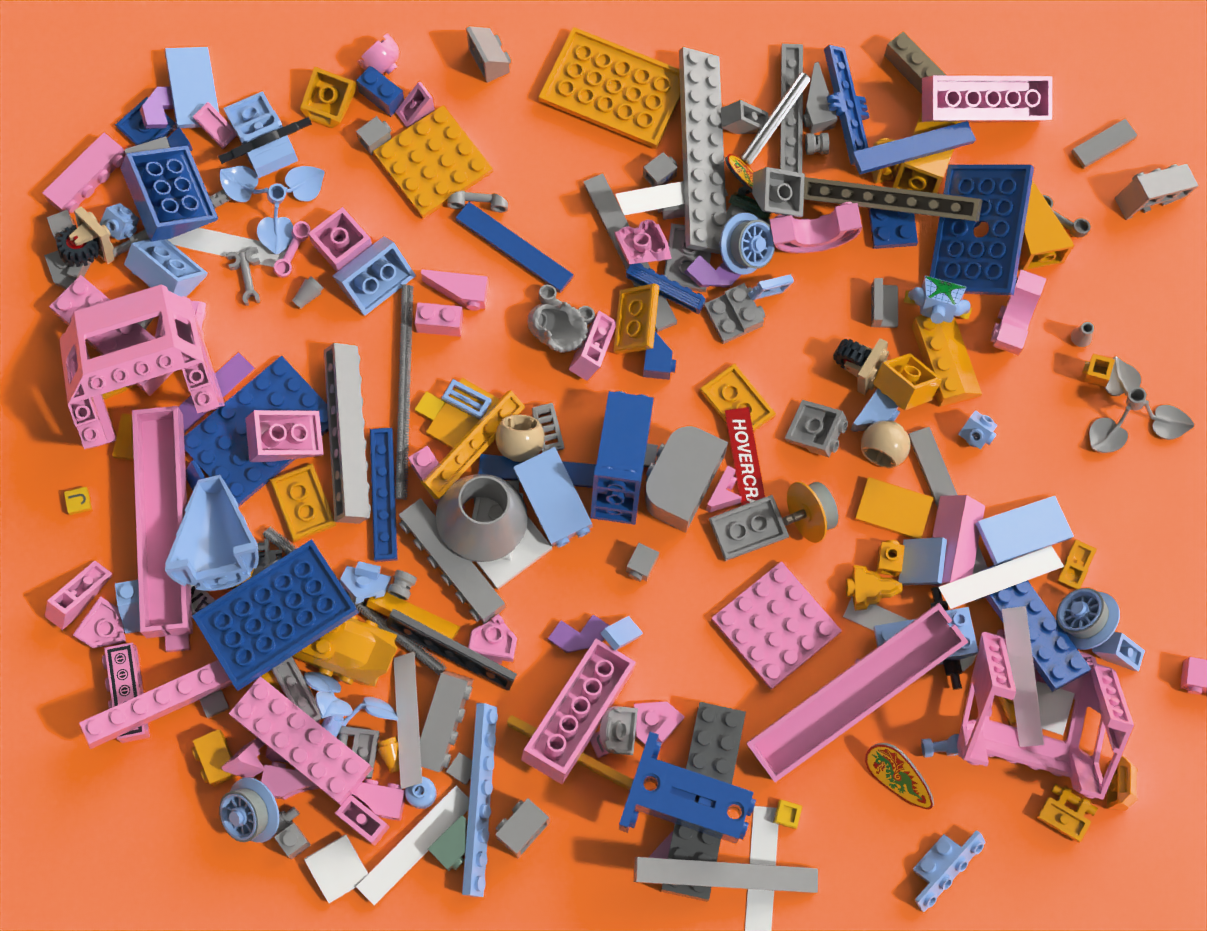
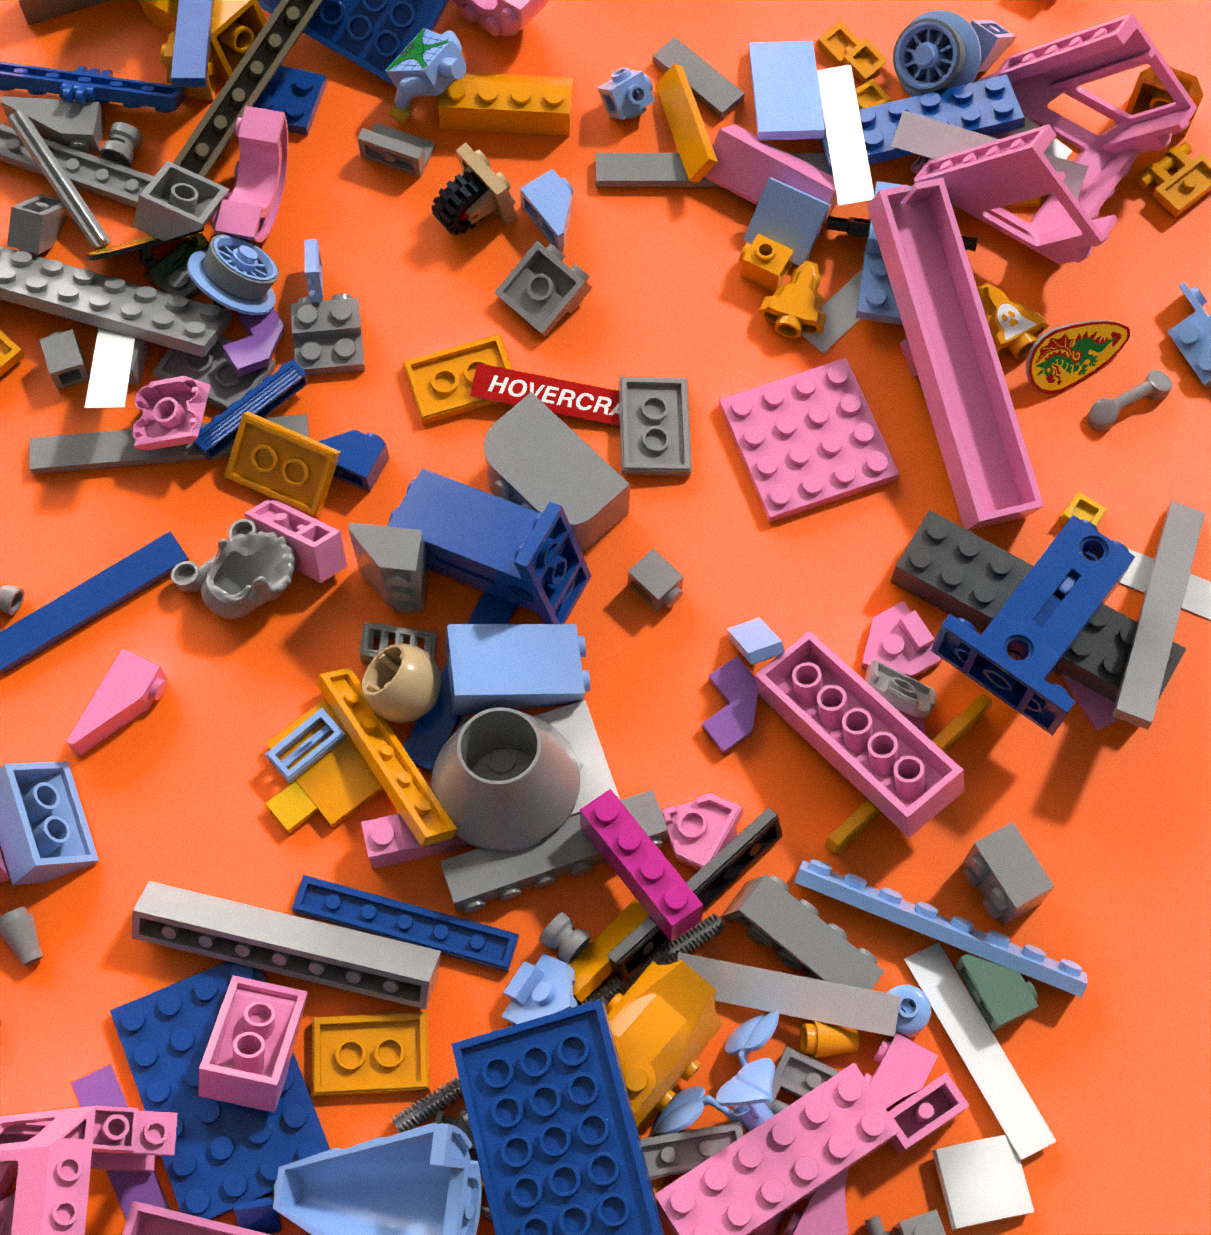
camera: 70 degrees left, 5 degrees down
(404, 391) = (231, 832): light grey axle -> none
(439, 319) = (158, 745): bright pink brick -> none
(449, 608) = (641, 865): none -> dark pink brick
(461, 769) = (882, 940): light grey tile -> none
(587, 406) = (393, 564): none -> slope
(722, 497) = (598, 437): bright pink slope -> none
(811, 510) = (666, 328): light orange piece -> none
(885, 444) = (604, 207): tan wheel -> none
(894, 508) = (694, 237): light orange tile -> none
(900, 837) = (1105, 411): none -> light grey bar
(907, 381) = (528, 147): light orange brick -> none
(907, 727) = (1010, 323): none -> light orange rock
(948, 746) = (1049, 278): light blue leg -> none
(971, 474) = (686, 123): none -> light orange tile
(1015, 472) = (705, 82): none -> light grey tile
(1046, 587) = (871, 95): none -> light orange tile

